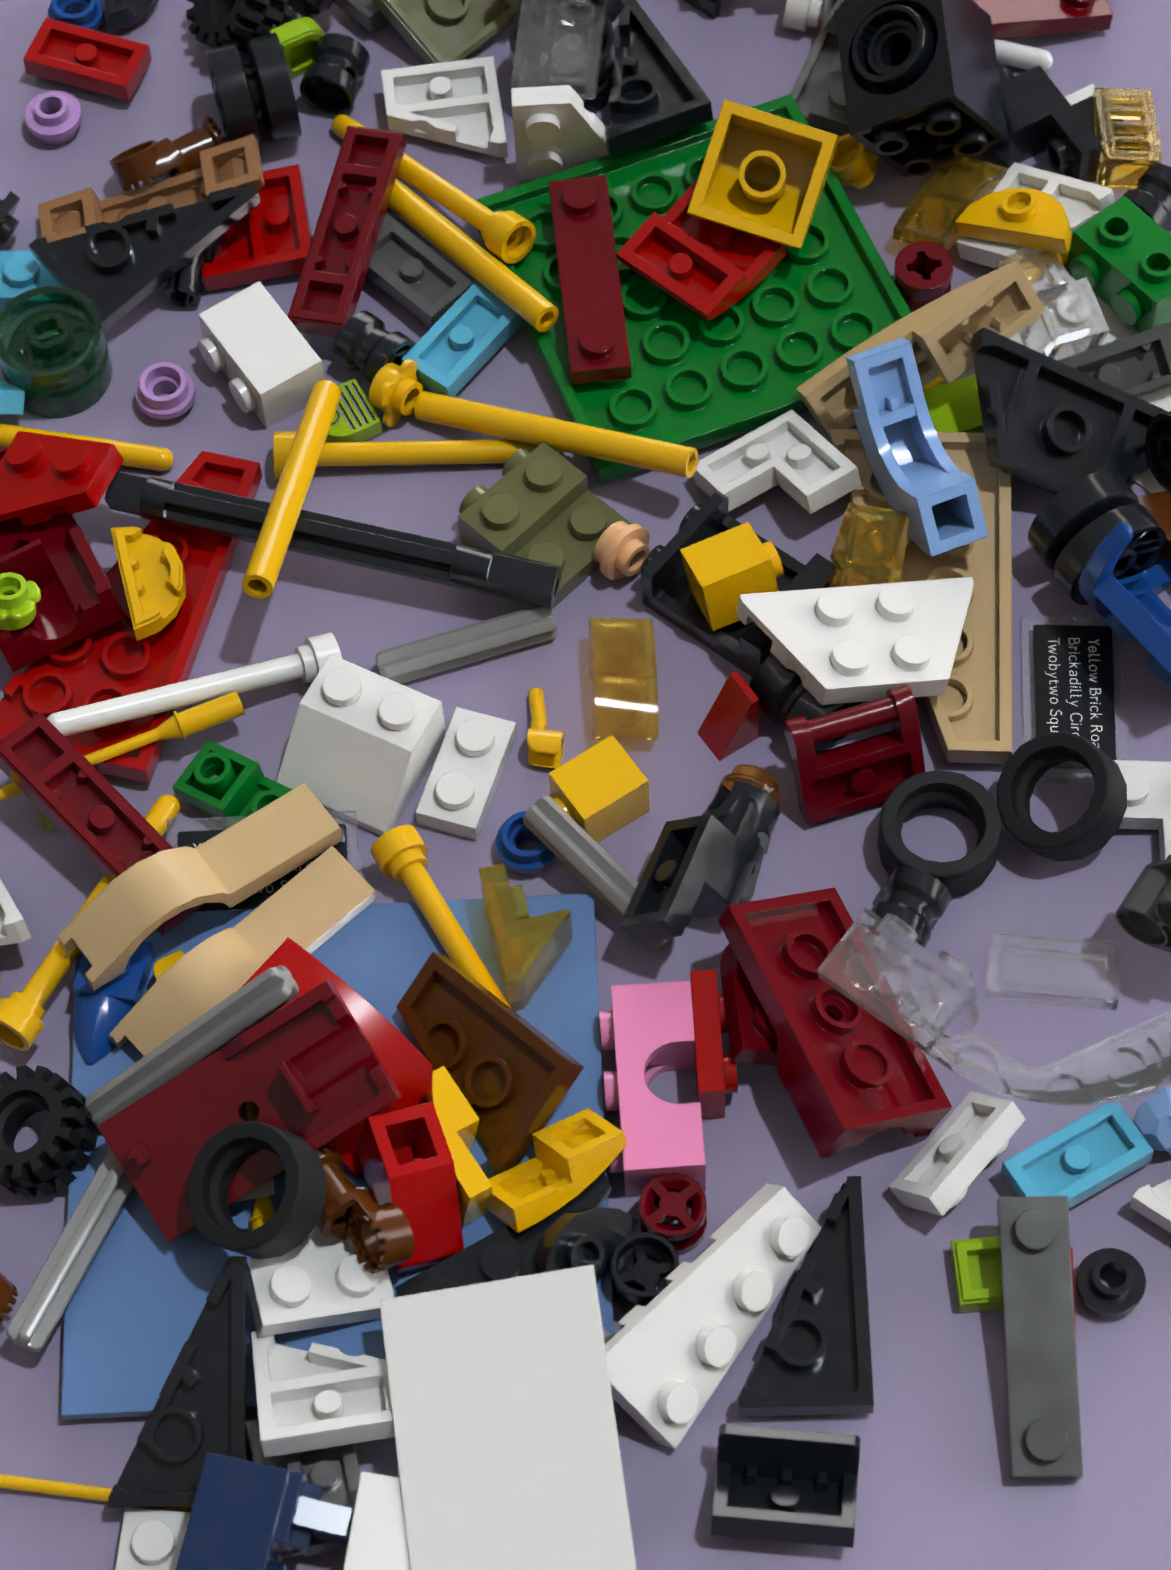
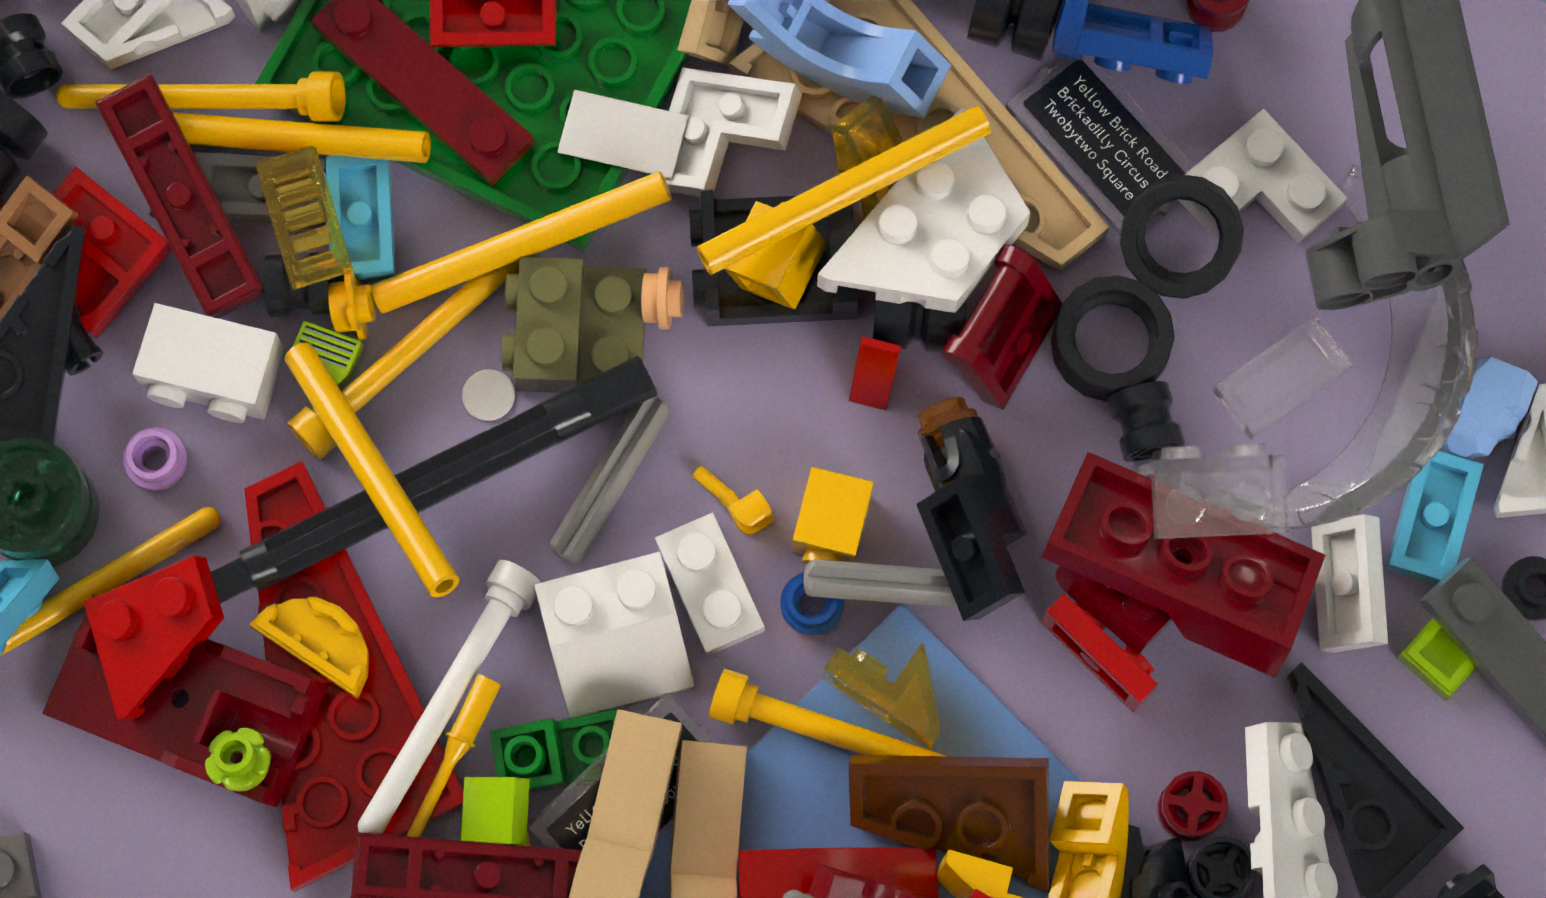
camera: 45 degrees left, 15 degrees up
(157, 787) = (495, 810): none -> lime tile
(429, 283) = (293, 180): none -> clear yellow slope
(438, 524) = (488, 395): none -> white sticker
(623, 679) = (764, 405): clear yellow slope -> none
(652, 1035) = (1045, 687): bright pink arch -> none
(702, 418) = (622, 133): none -> white sticker
(817, 552) = (843, 190): none -> yellow piece

